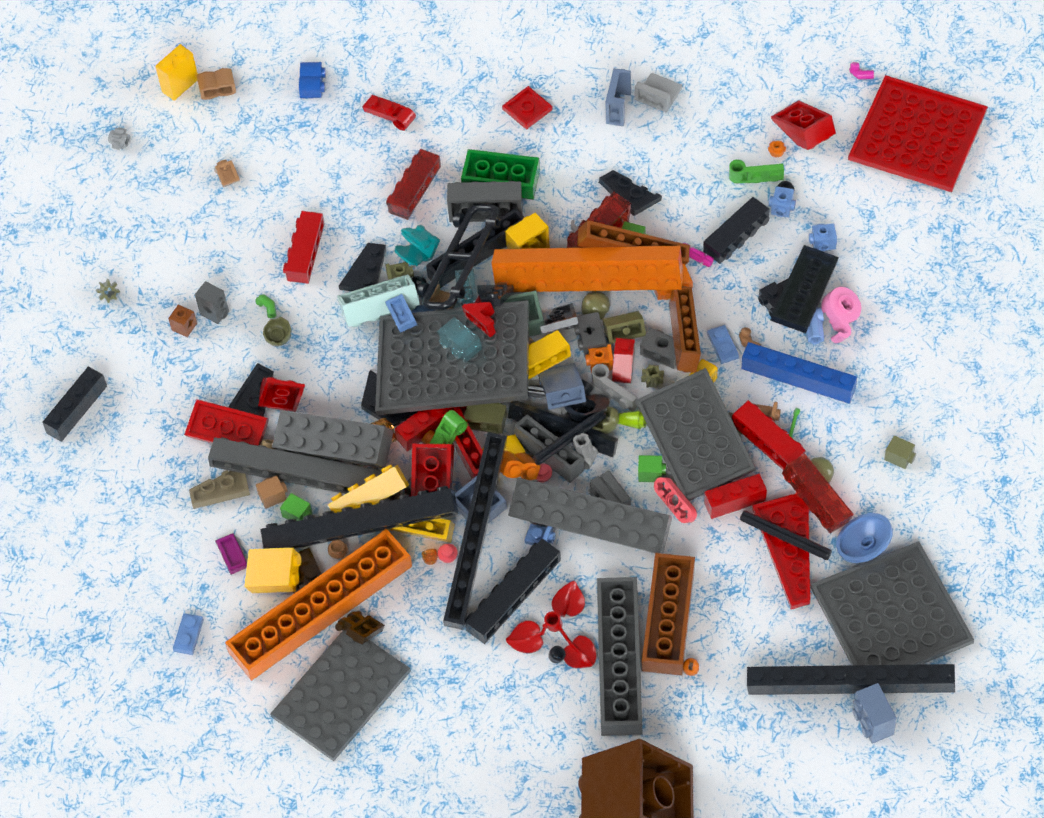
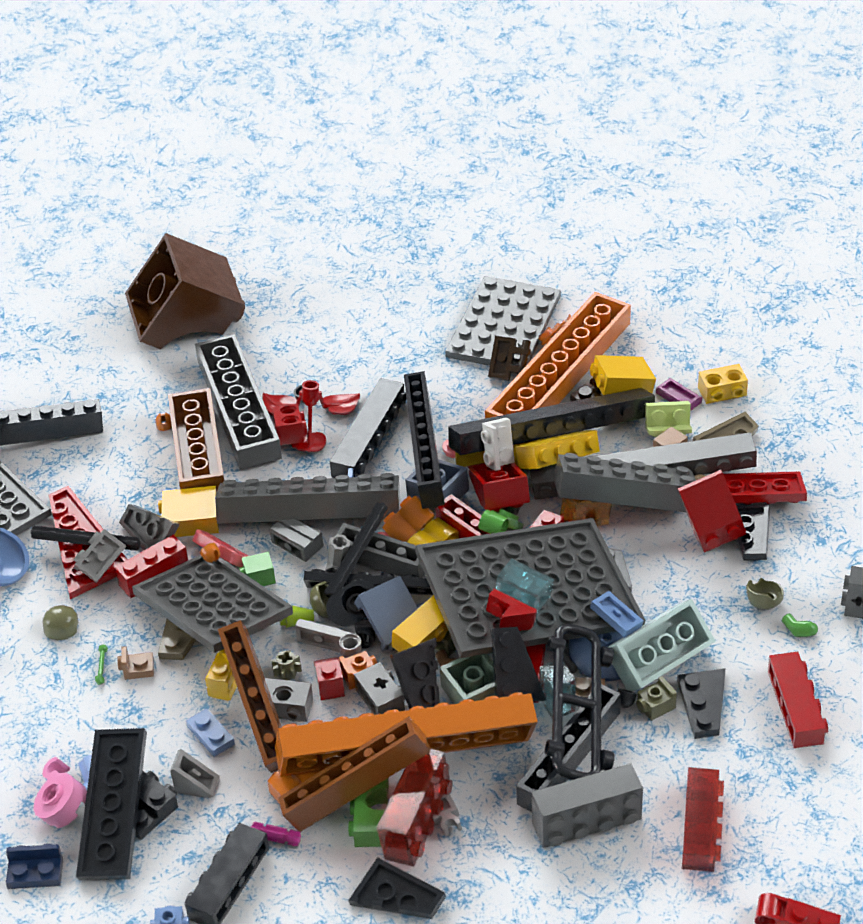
camera: 160 degrees right, 15 degrees down
(188, 634) = (678, 327): medium blue plate -> none
(190, 550) = (722, 383): none -> yellow brick
(259, 513) = (664, 415): none -> yellowish green bracket
(295, 508) = (631, 436): bright green brick -> none
(299, 653) = (546, 336): none -> orange plate
(418, 485) = (497, 443): none -> white bracket
(422, 245) = (649, 724): teal piece -> none
(502, 167) = (585, 856): green brick -> none
(528, 234) = (504, 769): yellow brick -> none
(585, 612) = (289, 424): none -> red brick
(624, 326) = (343, 701): olive brick -> none
(688, 488) = (210, 553): none -> orange hinge
(694, 541) = (191, 509): none -> brick
(731, 532) = (147, 525): none -> dark grey wing
(743, 306) = (192, 776): none -> light grey slope
(745, 337) = (178, 741): medium nougat arm -> none
(766, 435) = (127, 628): red brick -> none
(778, 504) = (99, 555): none -> light grey bracket
(799, 372) = (102, 711): blue brick -> none
(817, 493) = (56, 581): clear red brick -> none
(823, 237) = (101, 892): medium blue brick -> none
(866, 275) = (34, 866): none -> dark blue bracket

